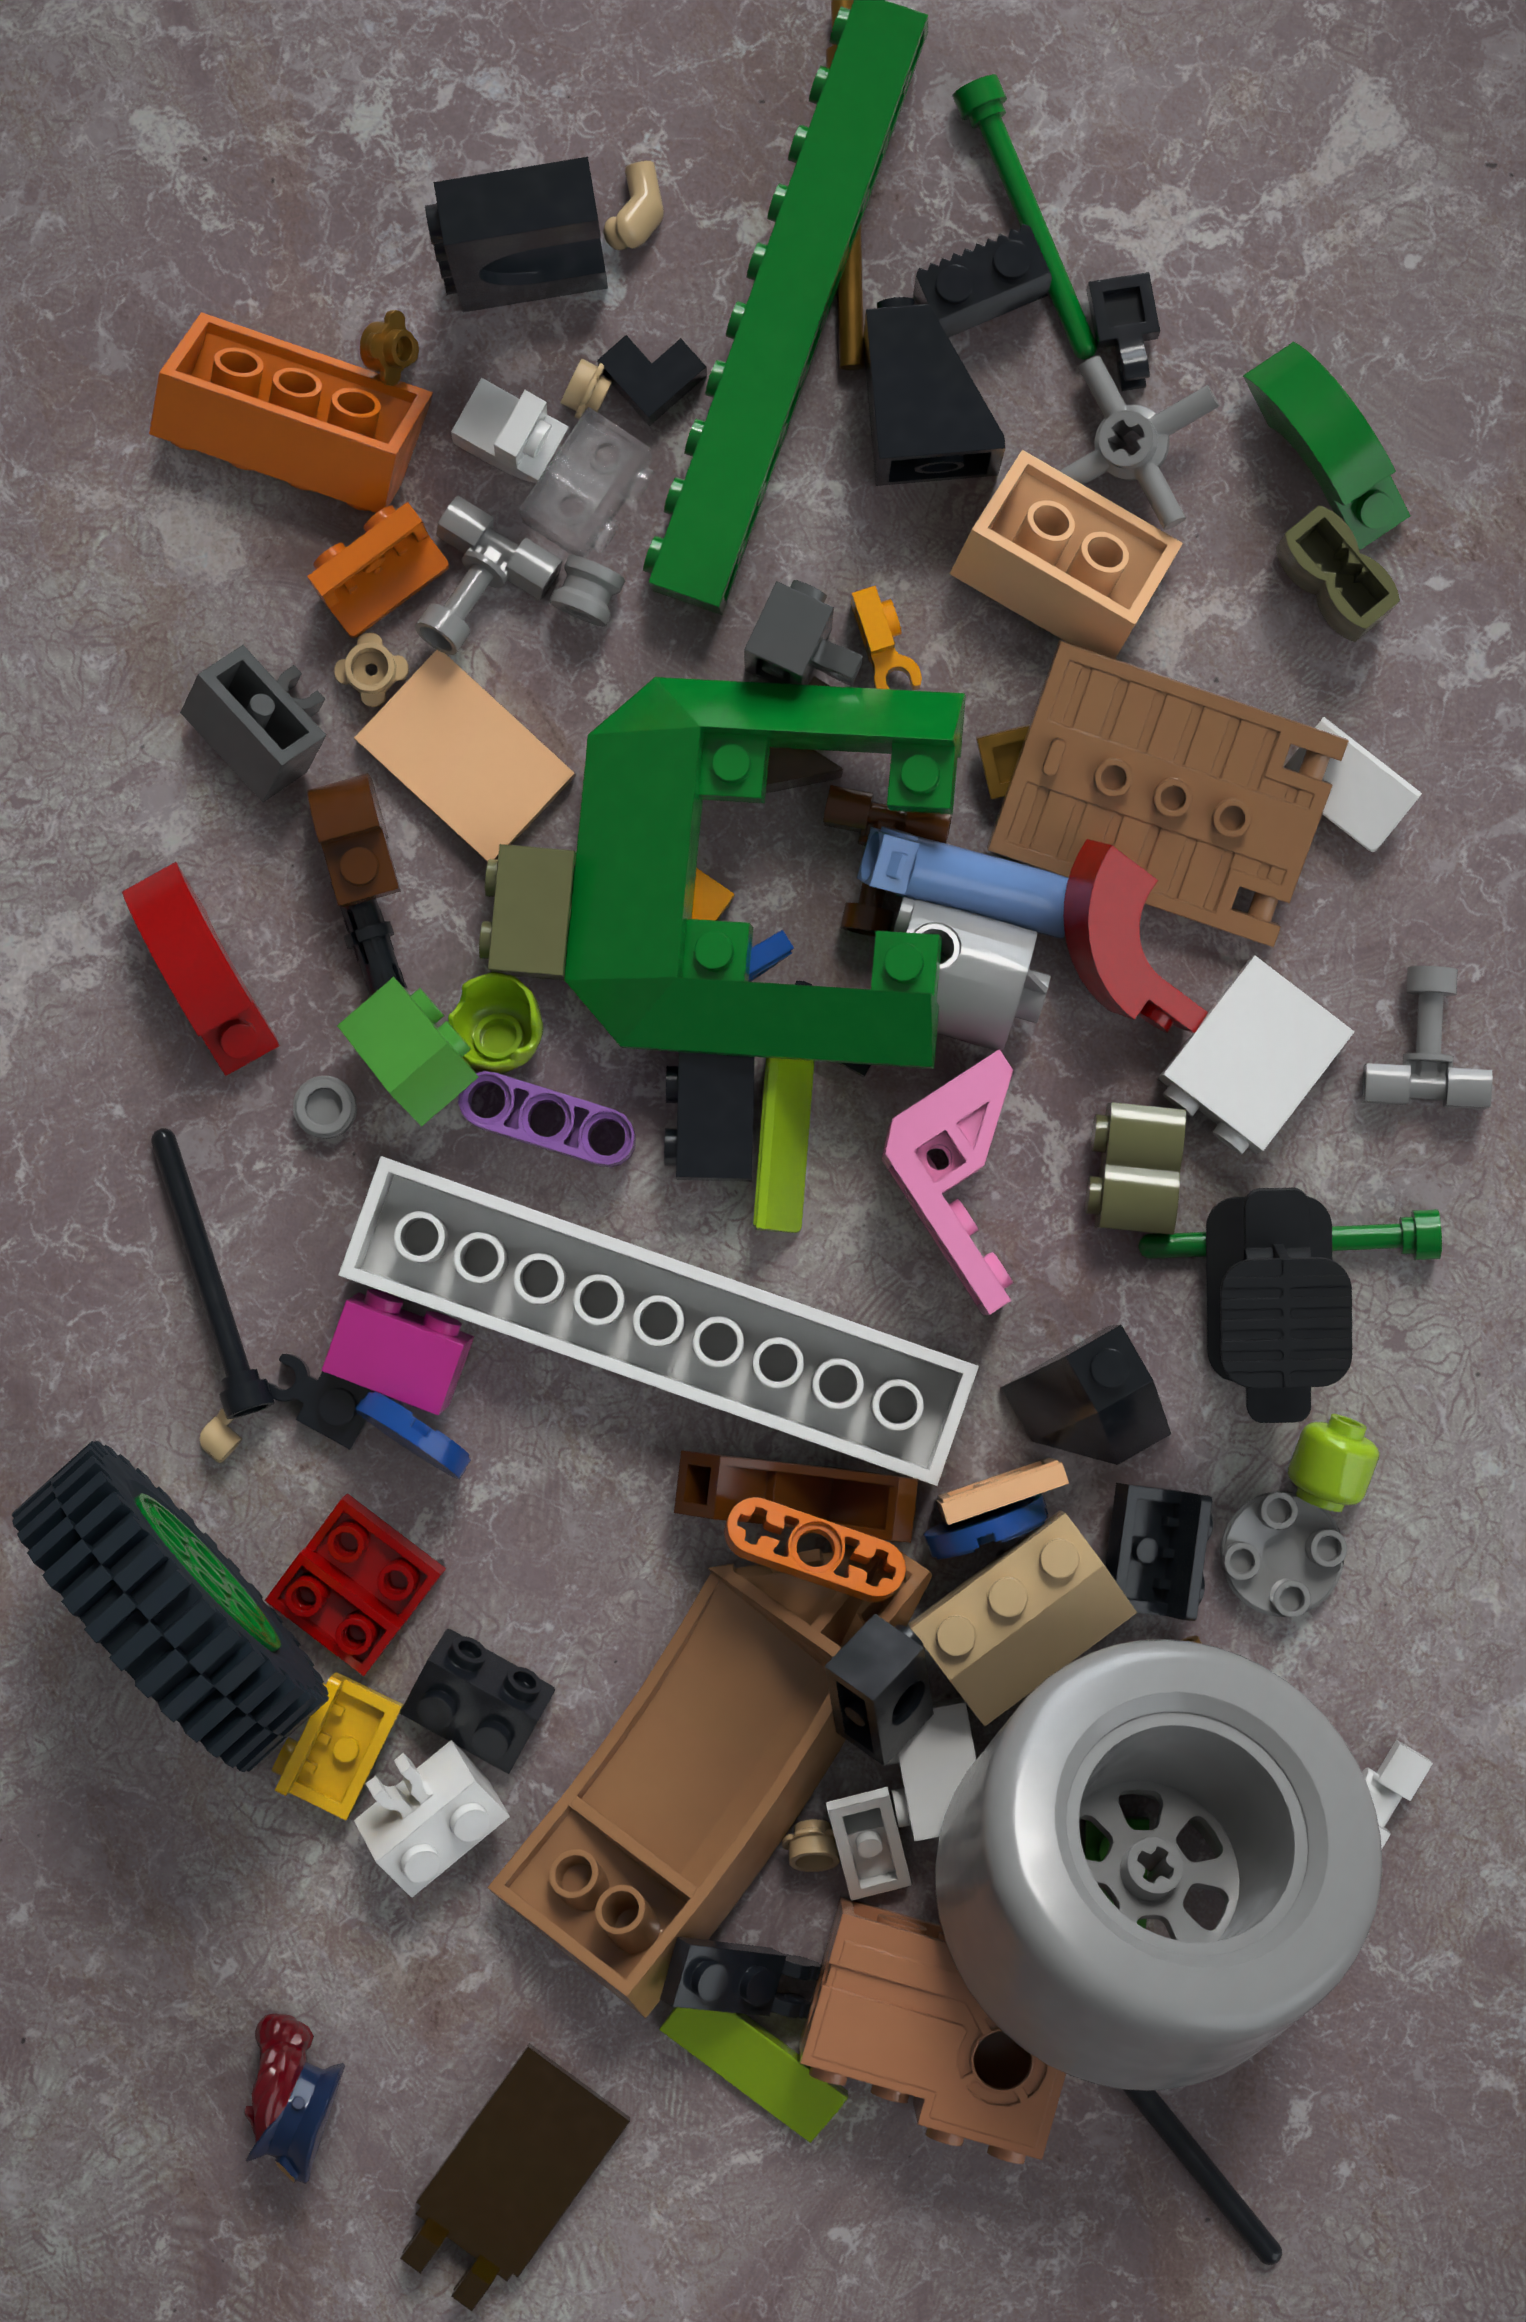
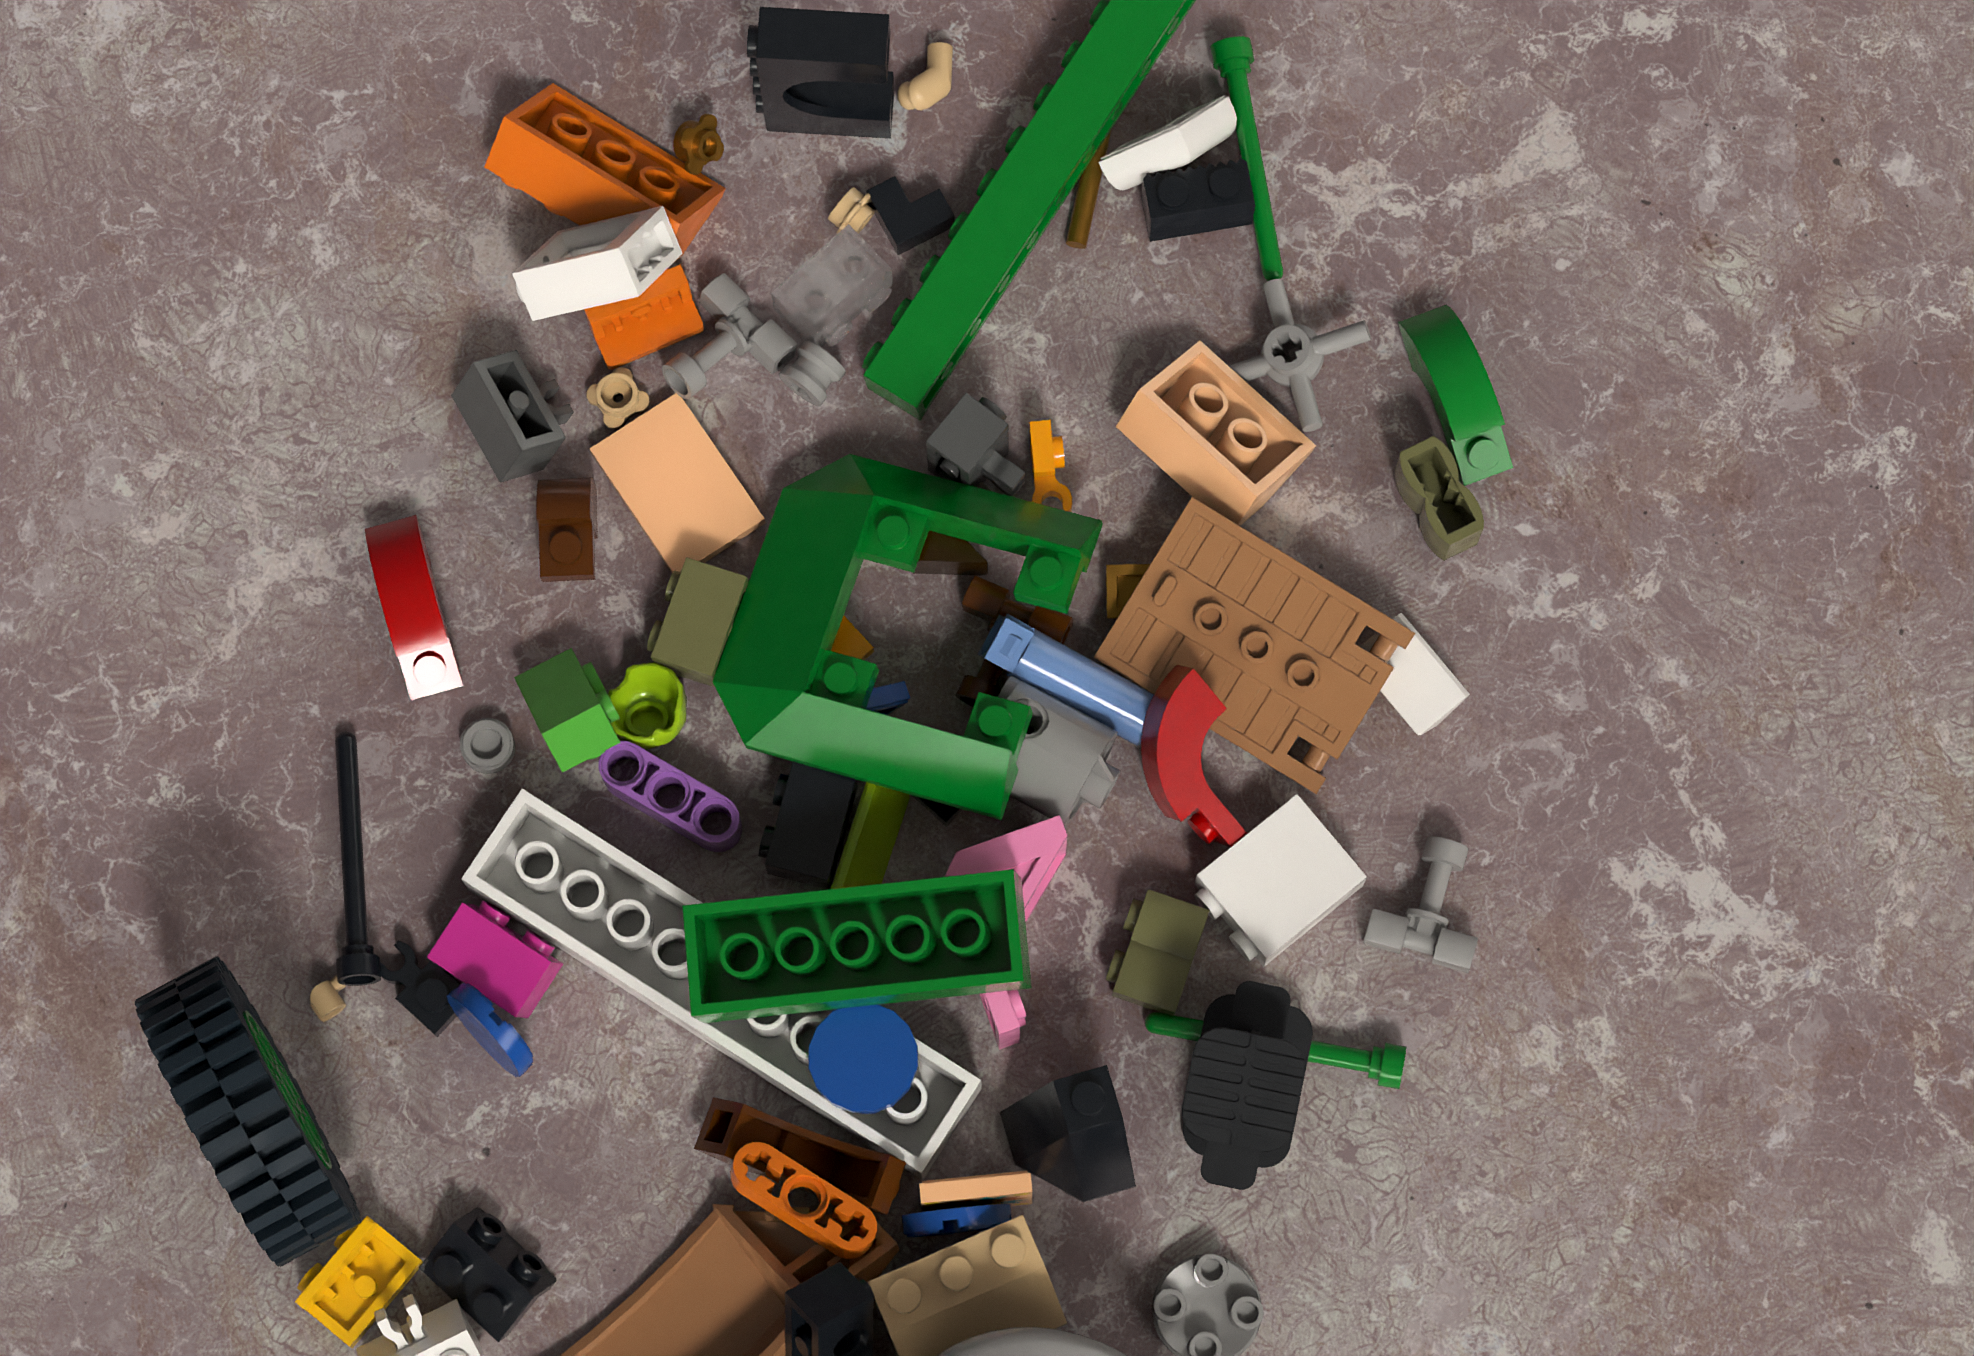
camera: 15 degrees right, 10 degrees down
(312, 523) = (597, 263): none -> white window
(355, 1584) = (409, 1150): red slope -> none
(372, 944) = (560, 617): black pin -> none
(508, 431) = (778, 229): white brick -> none
(809, 1258) = (856, 946): none -> green brick
(842, 1374) = (863, 1058): none -> blue tile
(923, 401) = (1124, 282): black slope -> none
(937, 227) = (1170, 145): none -> white brick
(1124, 317) = (1310, 255): black plate -> none
(1159, 1548) = (1101, 1278): black bracket -> none
(1333, 1463) = (1268, 1240): lime head -> none

